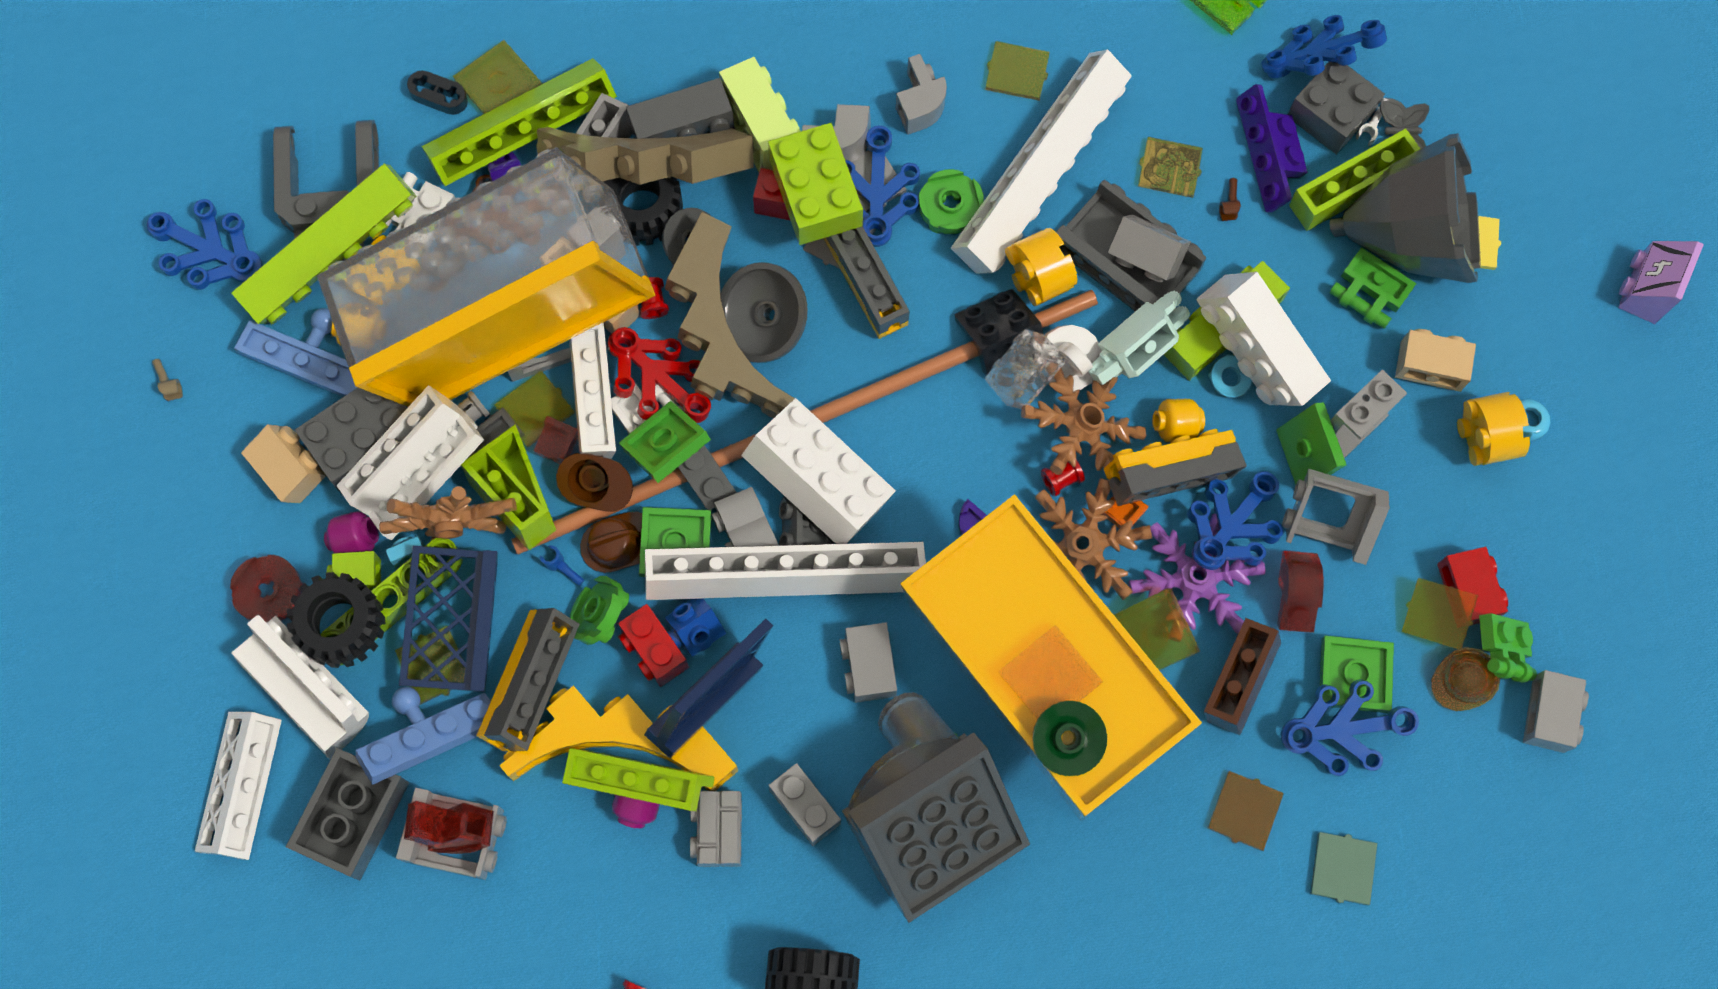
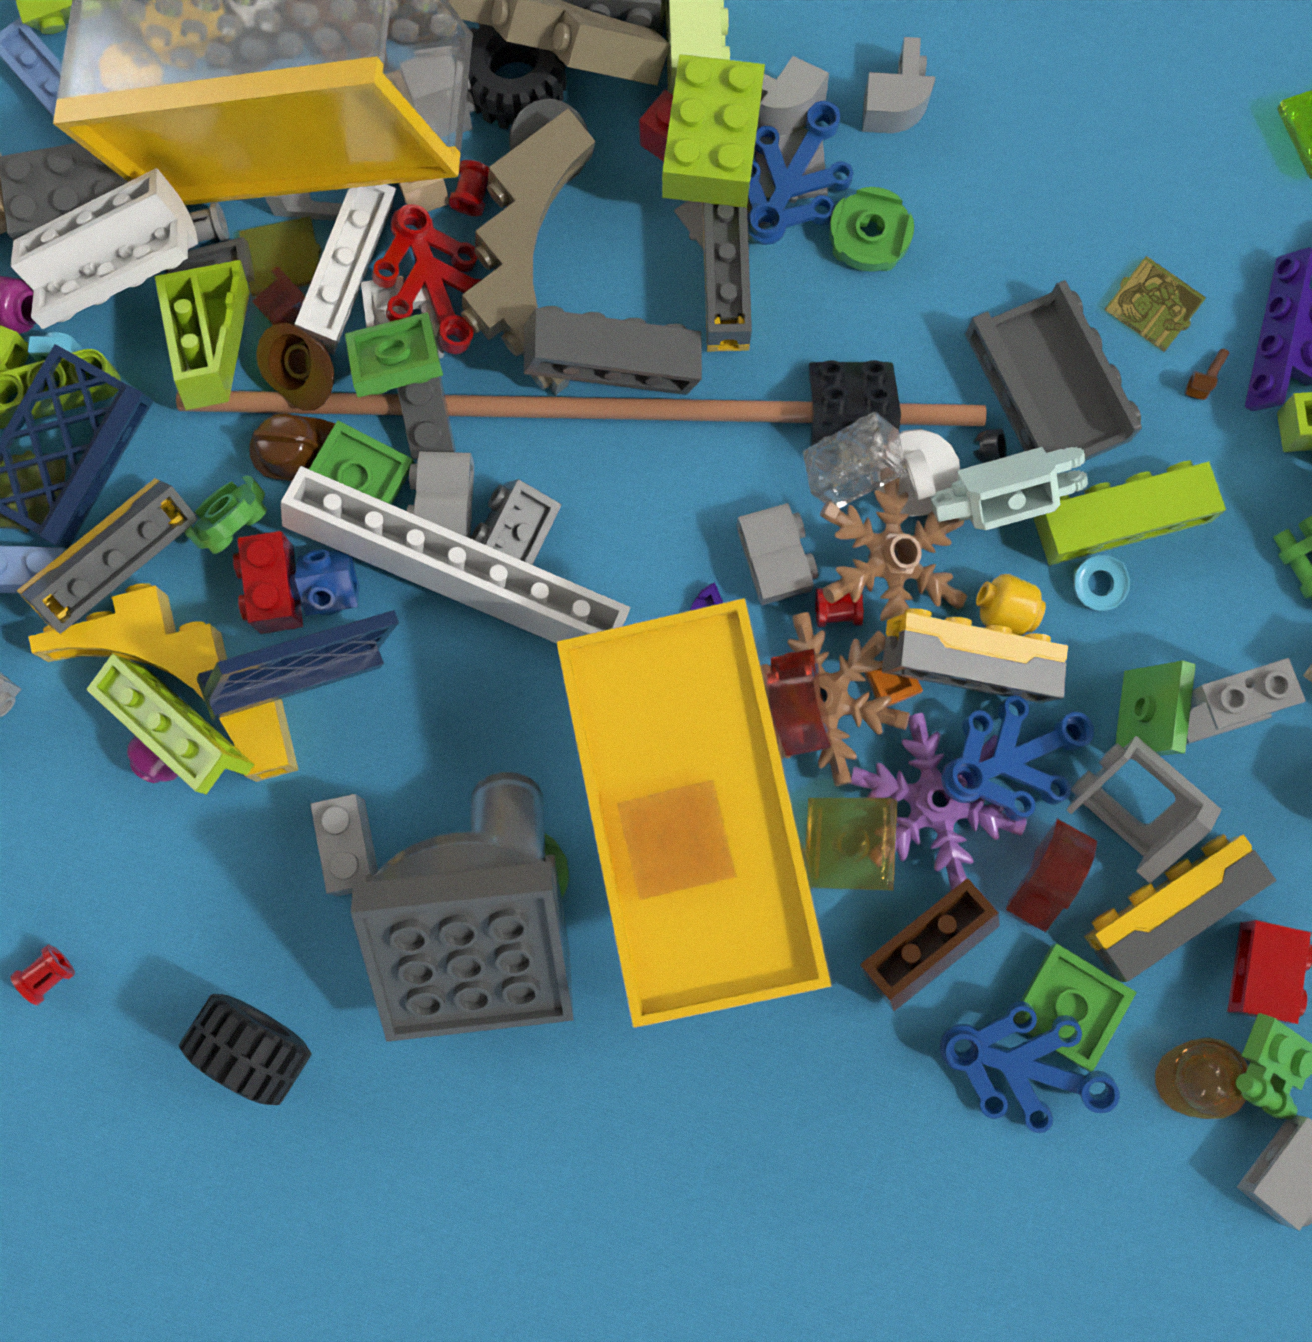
camera: 30 degrees right, 5 degrees up
(447, 516) = (101, 325): medium nougat piece -> none
(559, 564) = (218, 441): blue hand -> none
(718, 829) = (236, 825): light grey brick -> none
(747, 307) = (577, 241): dark grey dish -> none
(817, 368) = (612, 351): none -> dark grey brick
(818, 472) = (550, 470): white brick -> none
(869, 661) = (503, 717): light grey brick -> none
(1000, 458) = (776, 554): none -> light grey brick
(1017, 70) = (1029, 112): clear yellow piece -> none
(1041, 162) = (1002, 228): white brick -> none
(1041, 266) = (936, 349): yellow brick -> none
(1076, 549) = (798, 702): none -> clear red brick
(1088, 741) = (654, 950): dark green dish -> none
(1110, 316) = (992, 445): none -> black hinge
(1148, 248) = (1076, 384): light grey brick -> none
(1245, 811) = (856, 1102): clear orange piece -> none
(1262, 339) = (1158, 554): white brick -> none
(1343, 868) = (939, 1229): sand green piece -> none
(1392, 572) = (1179, 907): none -> piece
(1439, 613) = (1211, 985): clear yellow piece -> none

